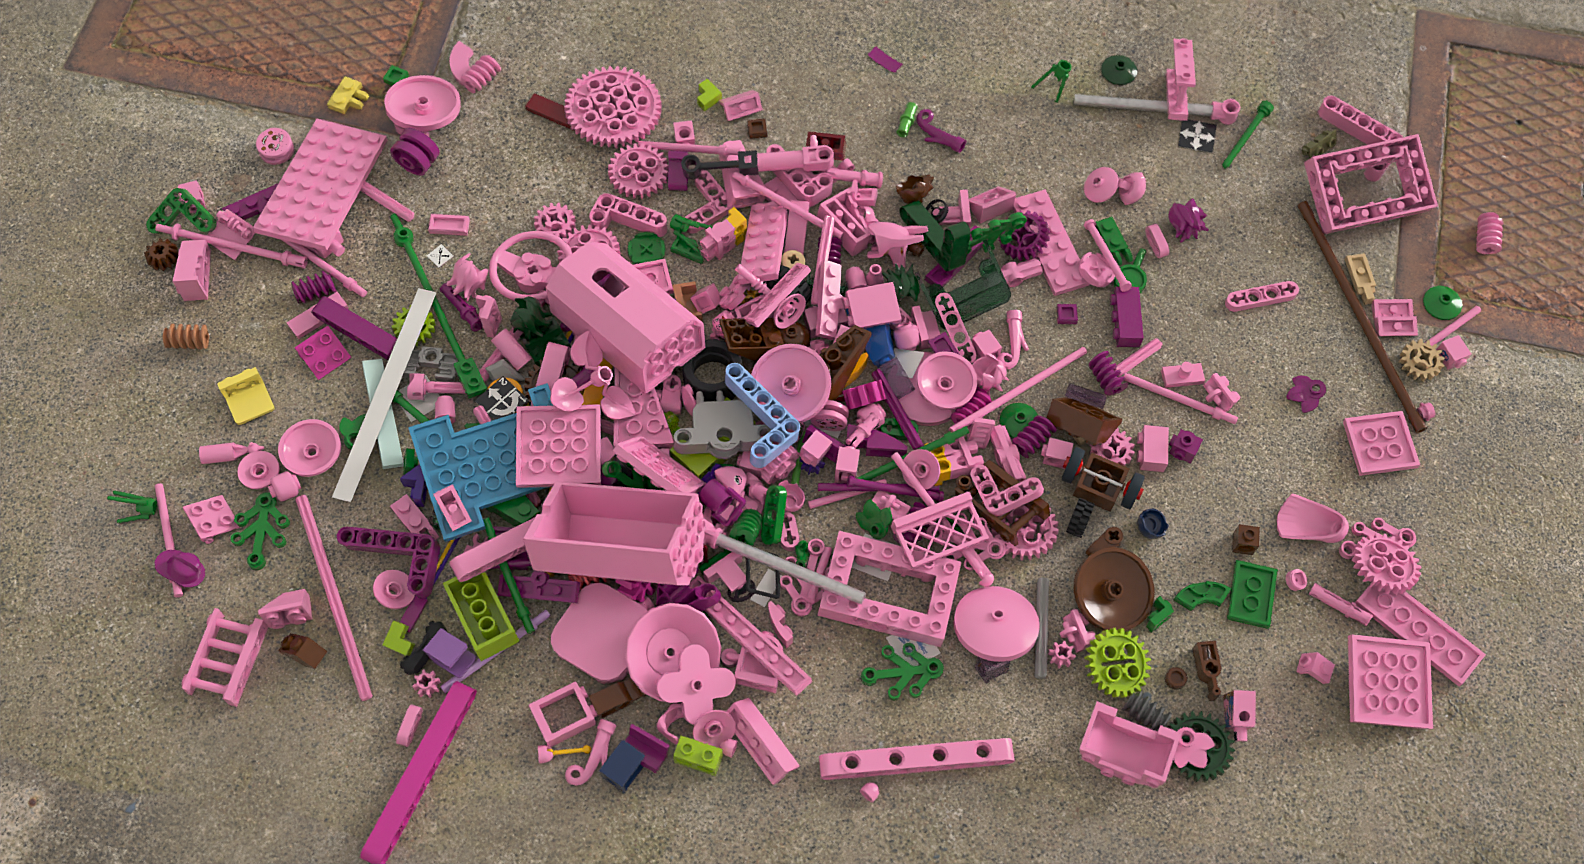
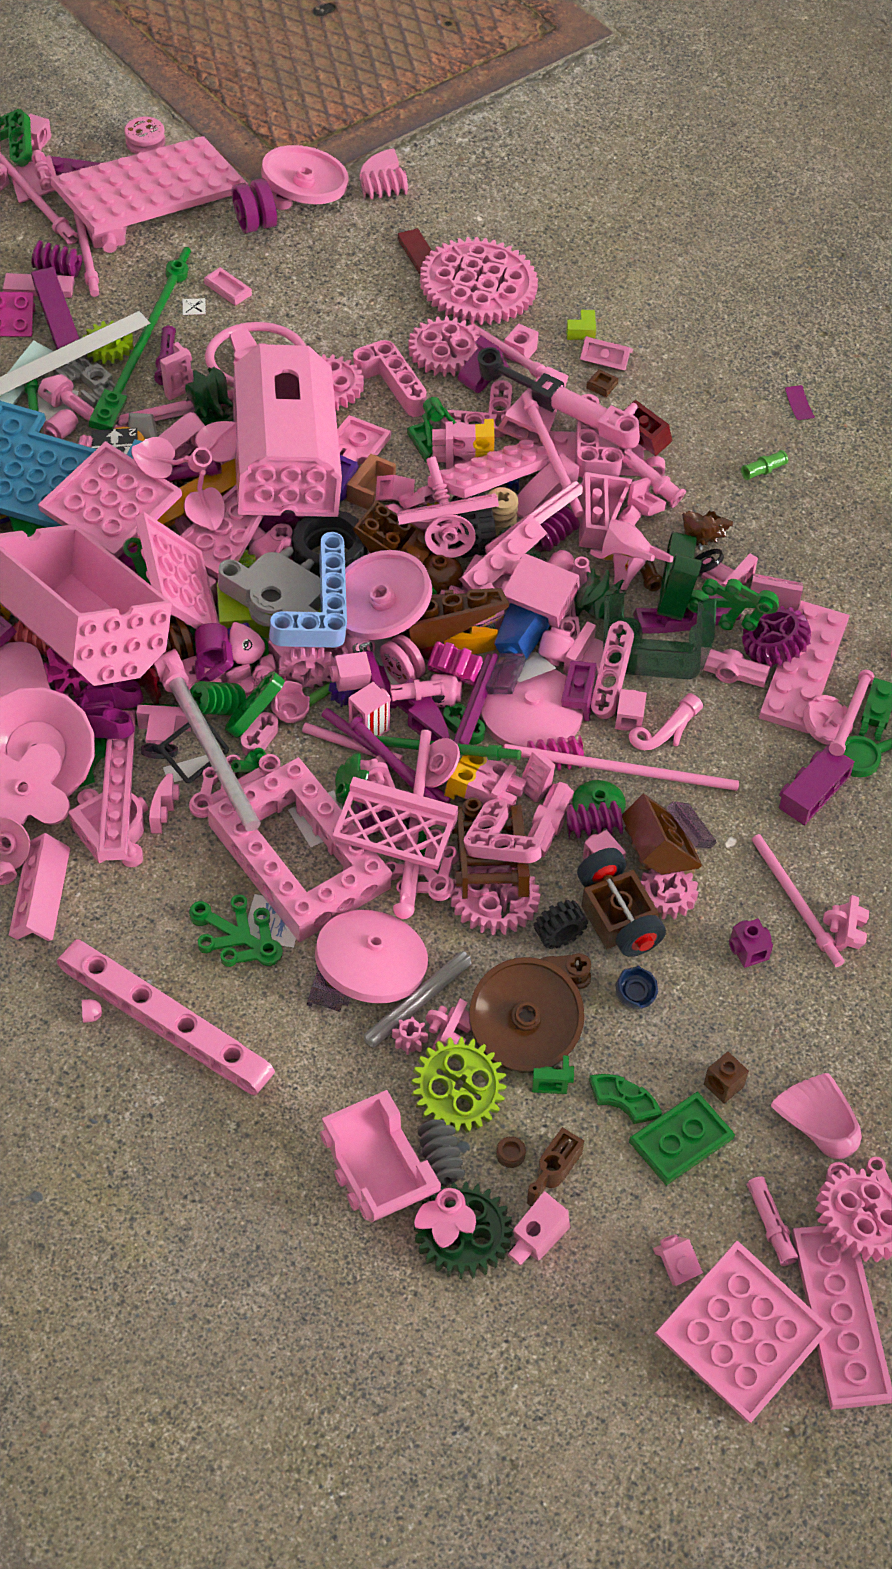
camera: 40 degrees right, 10 degrees down
(345, 96) = (248, 134): light yellow hinge -> none
(387, 201) = (193, 235): bright pink axle -> none
(395, 75) = (308, 140): green plate -> none
(467, 277) = (191, 329): bright pink hair -> none
(511, 349) = (166, 407): bright pink pin -> none
(555, 220) = (324, 337): bright pink gear -> none
(646, 248) = (386, 413): green tile -> none
(938, 136) = (794, 515): magenta plant -> none
(951, 370) = (549, 689): bright pink dish -> none
(989, 372) = (603, 730): bright pink hair -> none
(1067, 314) = (754, 741): magenta tile -> none
(1106, 375) = (736, 819): magenta piece -> none
(1138, 356) = (790, 830): bright pink axle -> none
(1153, 448) = (713, 922): bright pink brick -> none
(1183, 375) = (824, 880): bright pink tile -> none
(1296, 580) = (745, 1159): bright pink tile -> none

